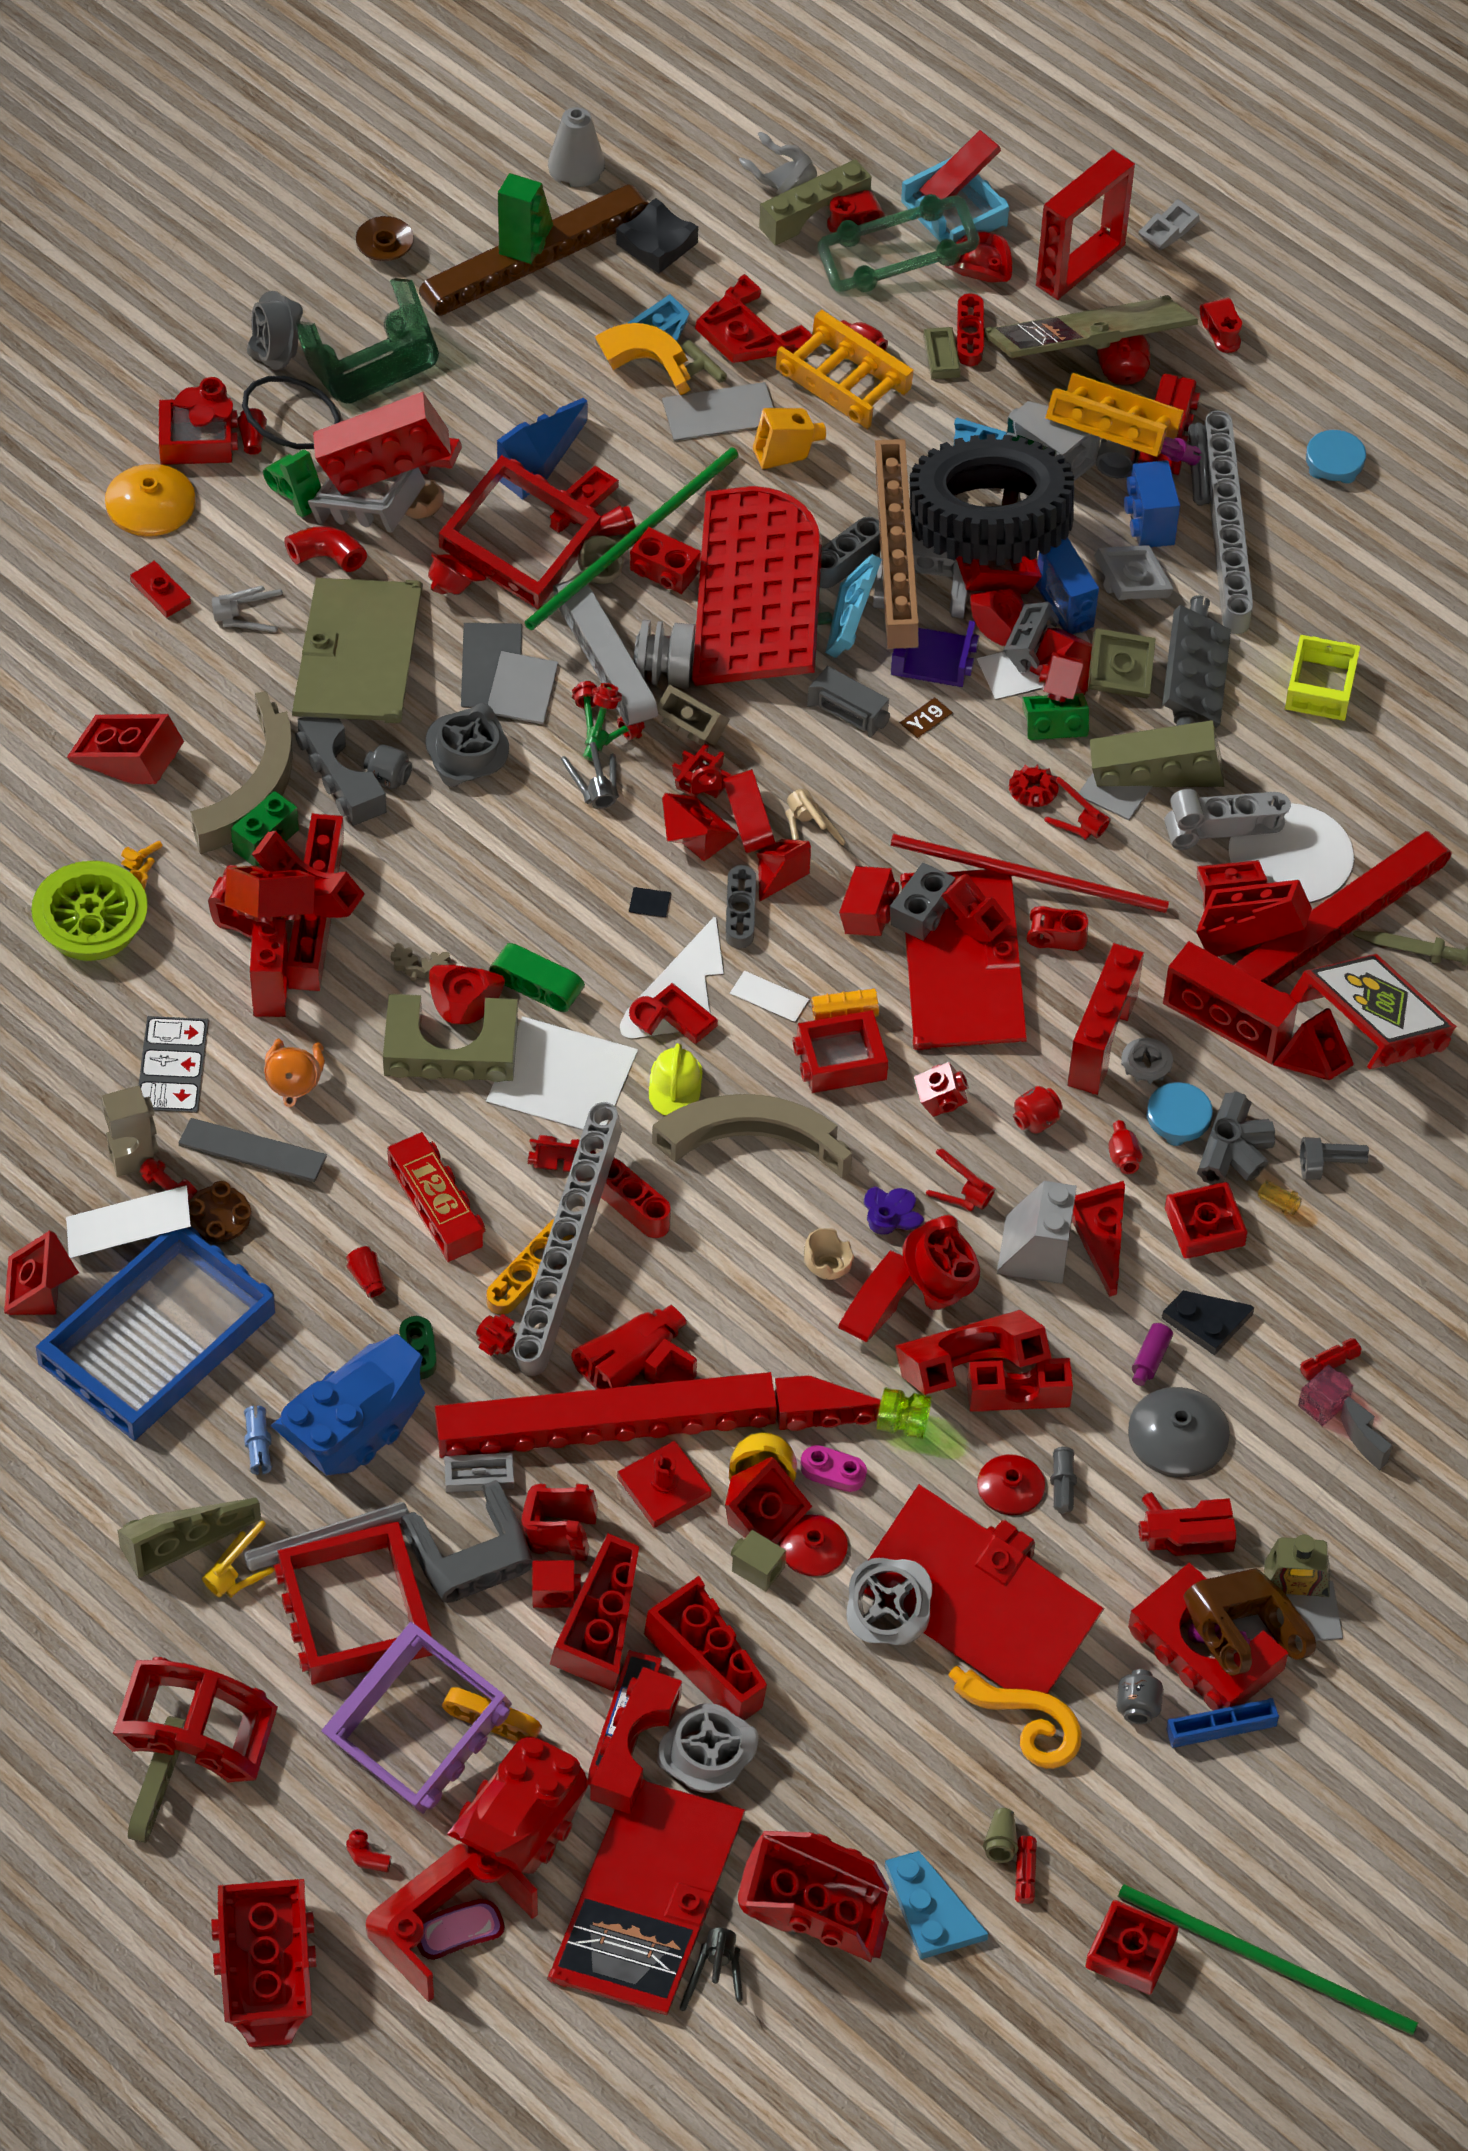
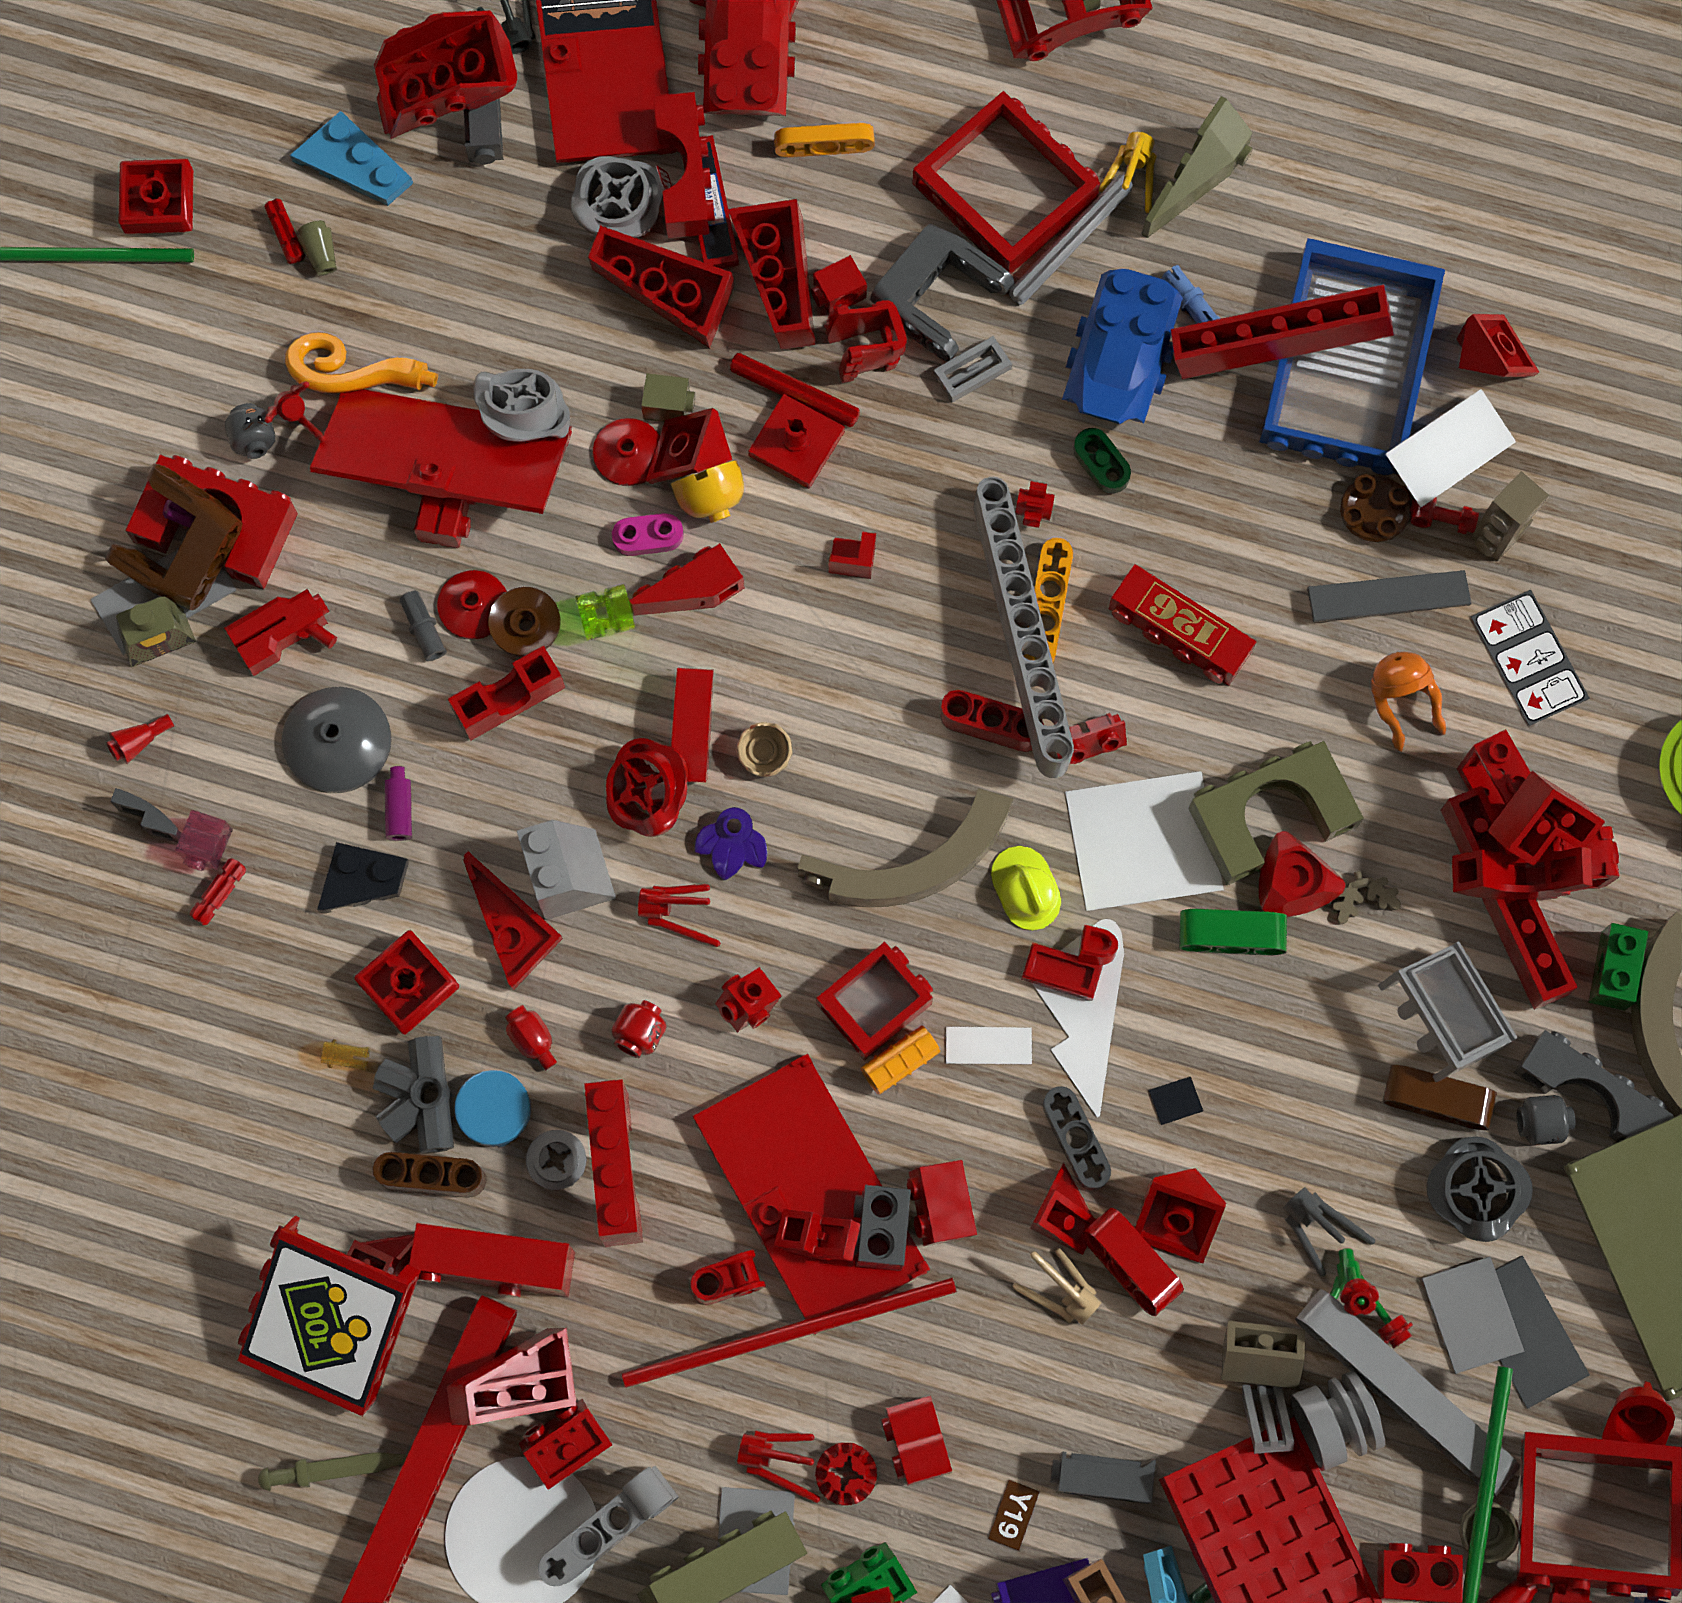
camera: 155 degrees right, 20 degrees up
(213, 1338) = (1282, 332): none -> red brick
(366, 1270) = (1198, 515): red cone -> none
(378, 1682) = (890, 44): medium lavender window -> none
(412, 850) = (1453, 1007): none -> light grey window
(455, 812) = (1442, 1100): none -> reddish brown beam
(605, 1415) = (886, 474): red brick -> none
(621, 1354) = (903, 554): red piece -> none
(642, 1524) = (796, 389): none -> red axle
(654, 1749) = (664, 177): none -> red sticker
(705, 778) = (1208, 1292): red piece -> none
(732, 659) = (1264, 1395): none -> light grey tile
(931, 1359) = (610, 682): red arch -> none
(971, 777) = (917, 1440): none -> red brick
(980, 1428) = (519, 606): none -> reddish brown dish
(1093, 1702) = (291, 408): none -> red plant
(1222, 1723) = (169, 442): blue piece -> none
(1242, 1076) = (414, 1164): none -> reddish brown beam
(1314, 1154) = (330, 1129): dark grey piece -> none
(1353, 1499) = (130, 741): none -> red cone

